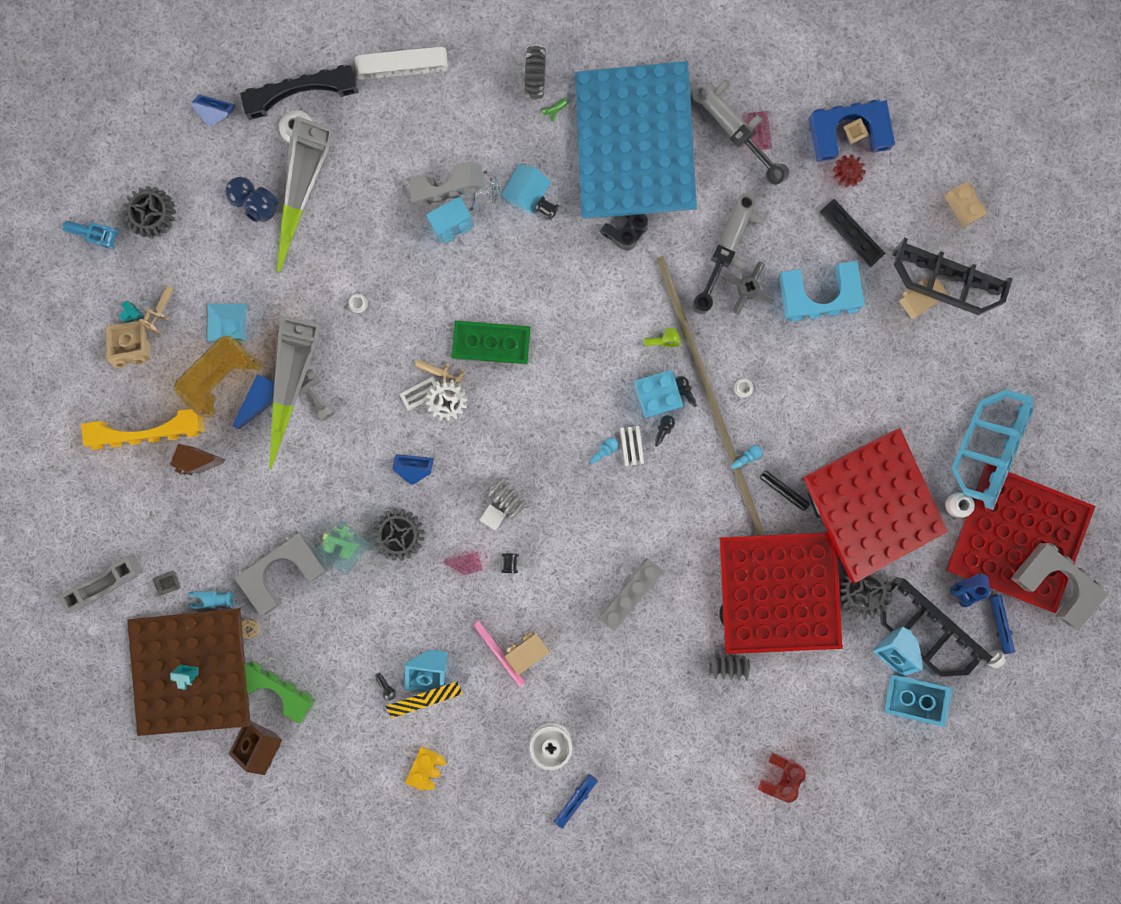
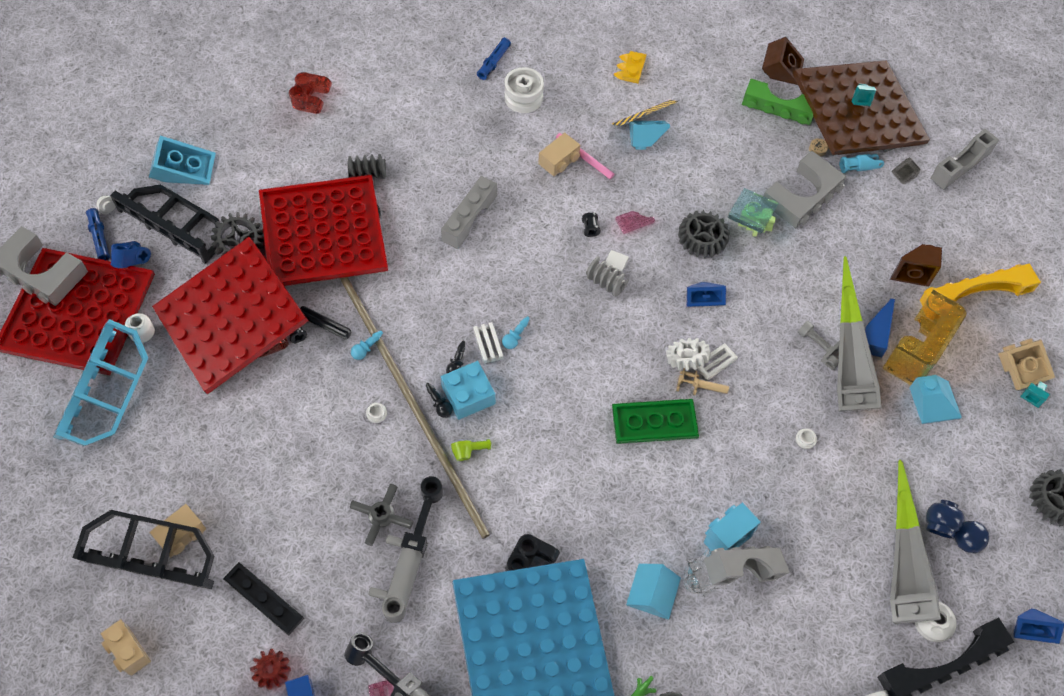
camera: 175 degrees right, 25 degrees down
(158, 311) = (1009, 399): tan piece -> none
(388, 692) = (678, 115): black piece -> none
(546, 208) = (625, 569): black bush -> none
(798, 305) = (266, 519): medium azure arch -> none
(900, 651) = (200, 196): medium azure slope -> none

